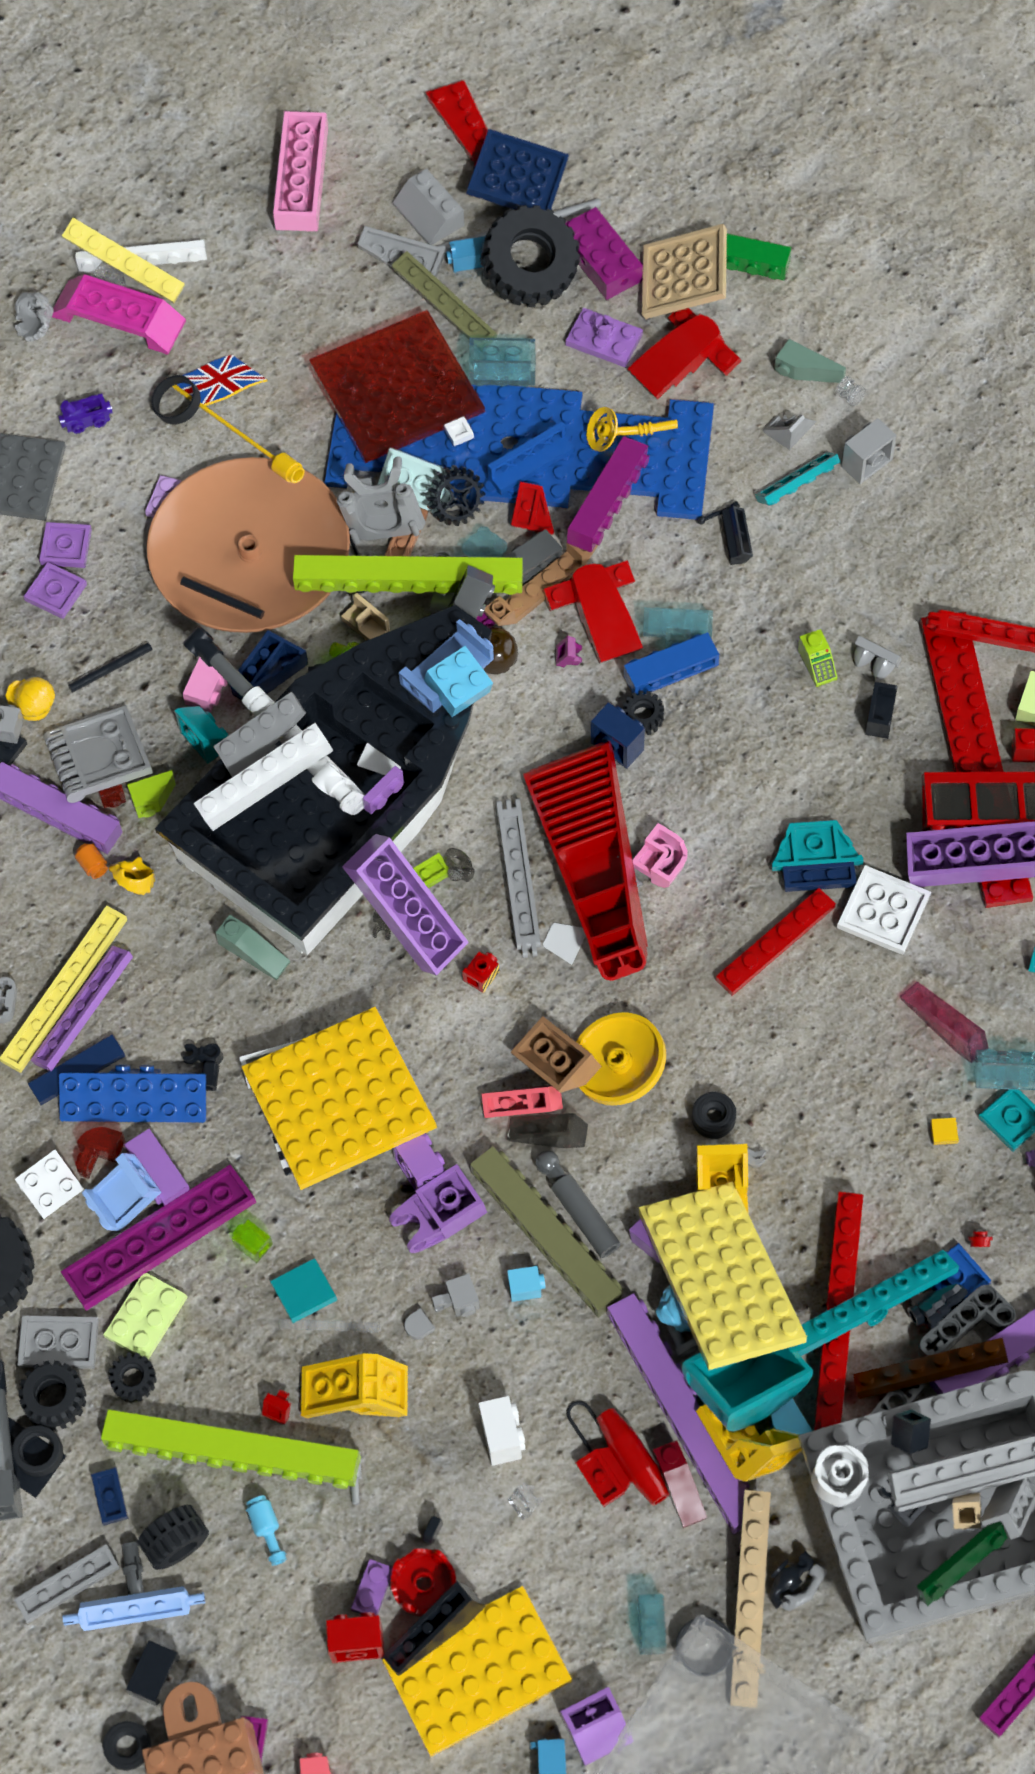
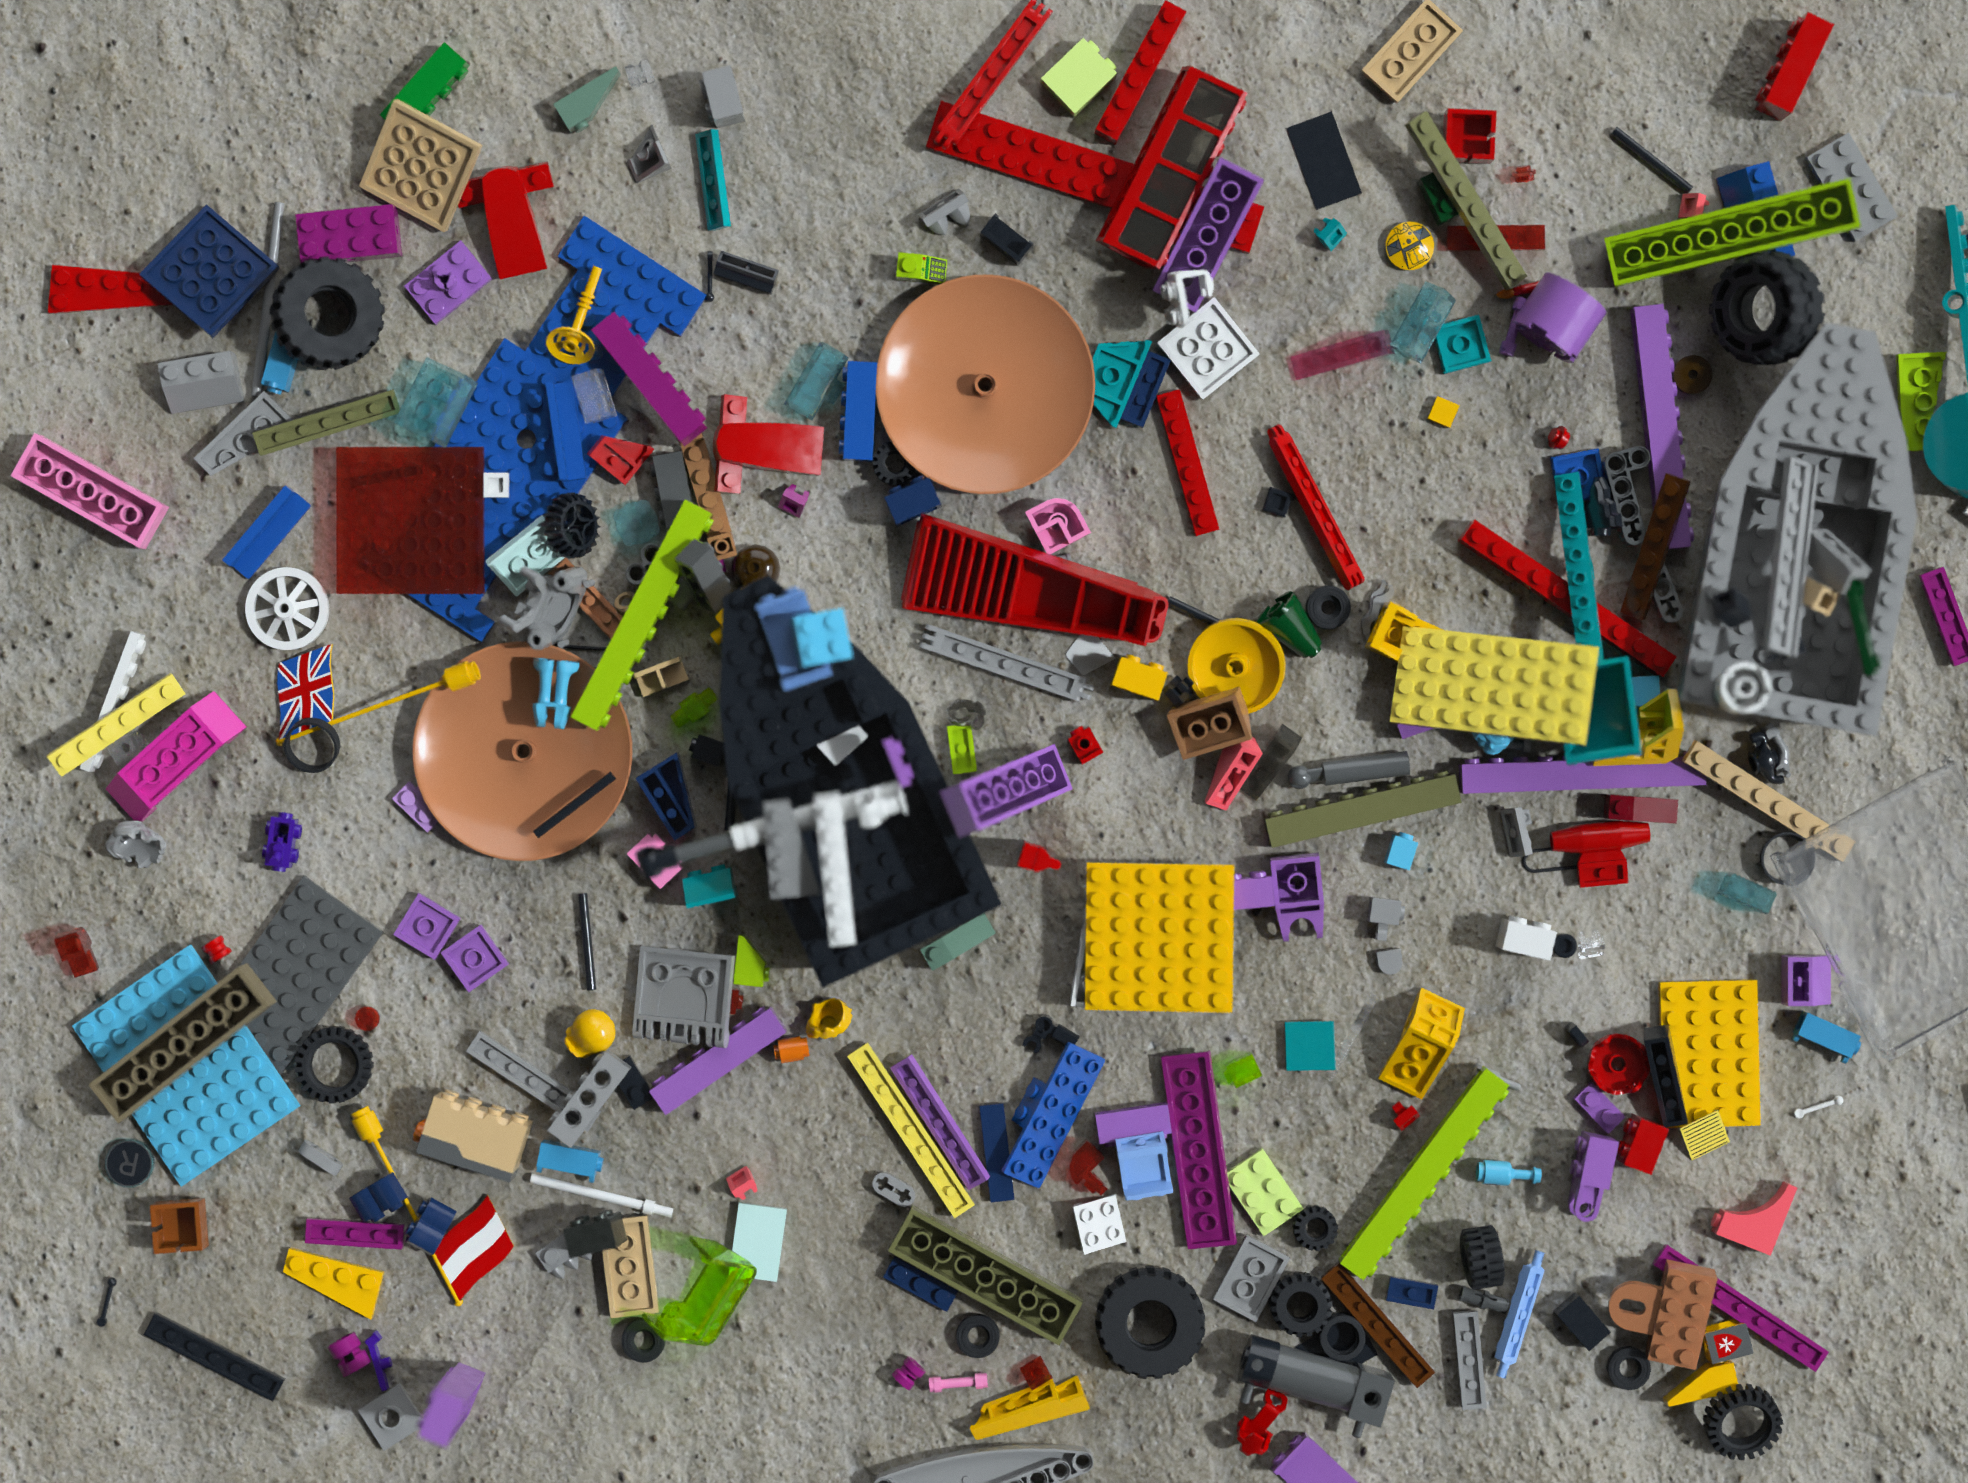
camera: 70 degrees left, 25 degrees up
(63, 1481) = (1377, 1324): none -> reddish brown plate
(279, 338) = (293, 612): none -> white wheel
(290, 539) = (564, 670): none -> medium azure piece
(302, 1603) = (1591, 1173): none -> medium lavender brick
(334, 299) = (267, 532): none -> blue panel
(358, 964) = (1036, 858): none -> red piece
(394, 1702) = (1704, 1135): none -> light yellow sticker
(512, 1477) = (1564, 945): none -> black tile
(564, 981) = (1139, 678): none -> yellow brick
(571, 466) = (594, 396): none -> clear hinge
(571, 1023) = (1178, 690): none -> black tile
(606, 1373) = (1517, 836): none -> light grey hinge
(647, 1000) = (1192, 611): none -> black bar
(679, 1088) = (1291, 625): none -> dark green cone
(756, 703) = (995, 333): none -> nougat dish
(783, 1031) = (1277, 502): none -> black tile
(796, 1062) = (1315, 507): none -> red hinge
(915, 838) = (1175, 293): none -> white piece

